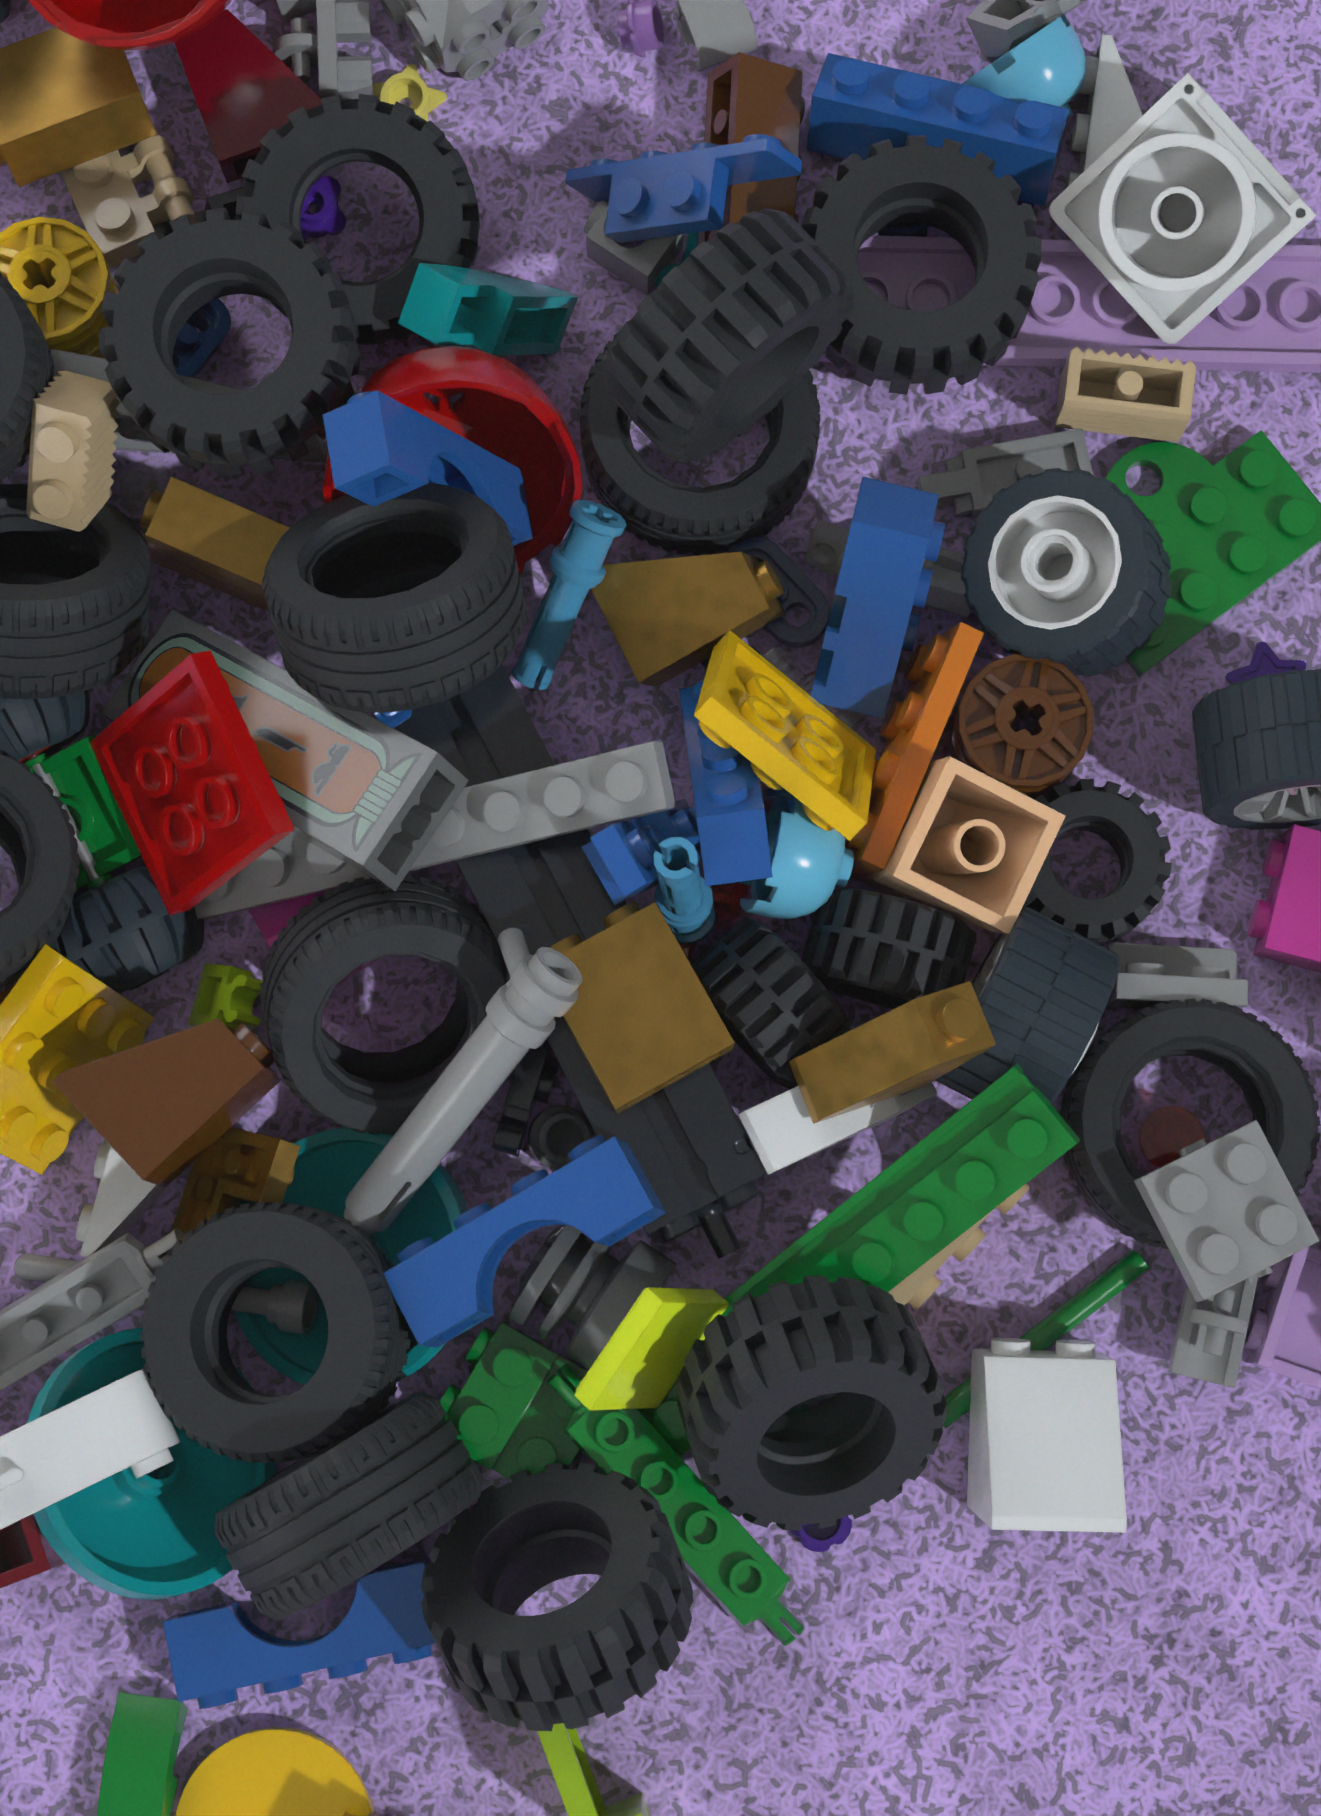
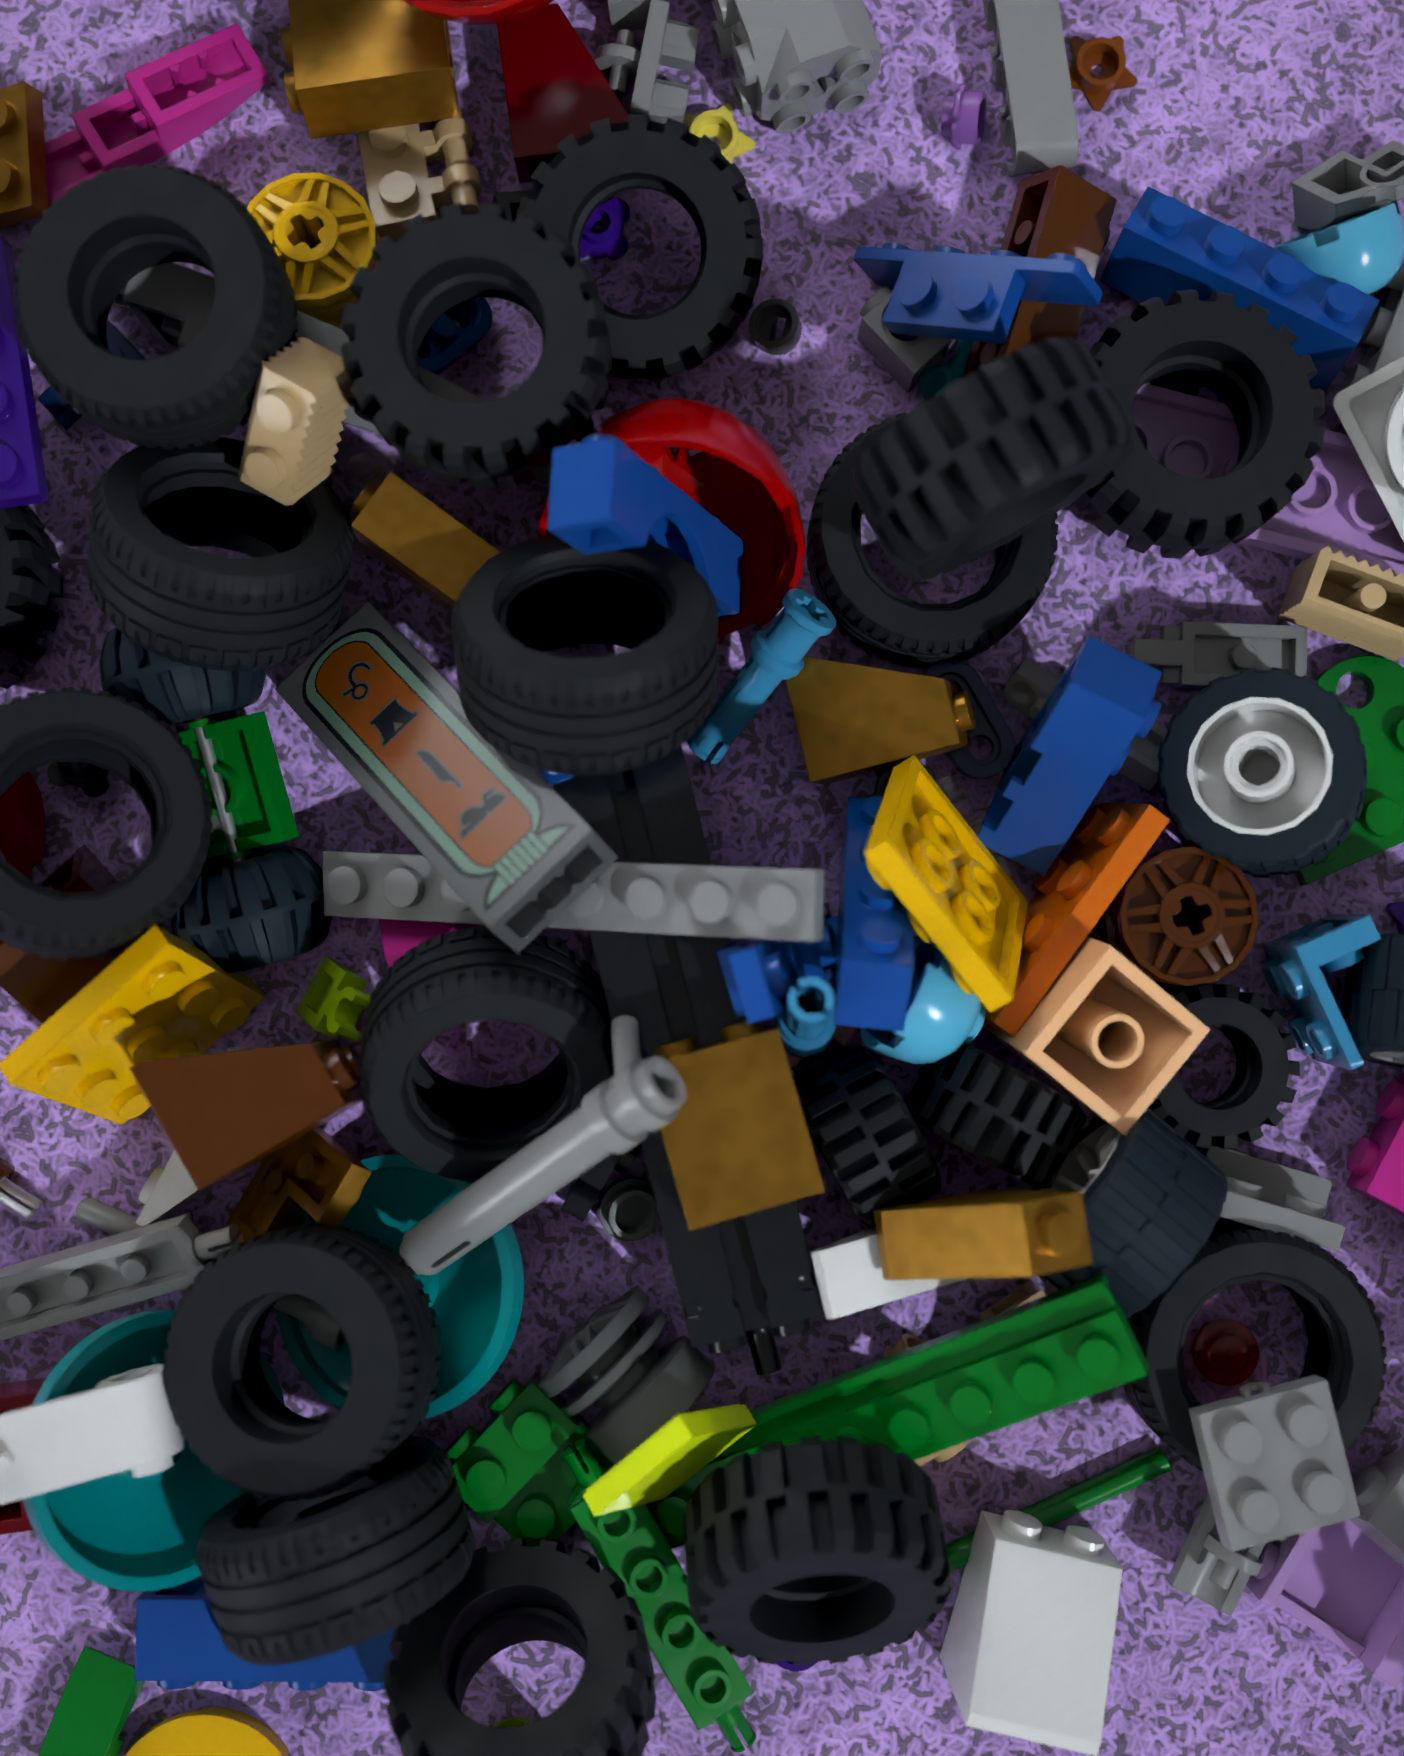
camera: 10 degrees right, 5 degrees up
(191, 783) = (341, 790): red plate -> none
(450, 1282) = (486, 1355): blue arch -> none
(486, 311) = (744, 372): teal slope -> none
(494, 257) = (764, 323): none -> dark grey hinge
(1148, 760) = (1296, 973): none -> dark azure bracket

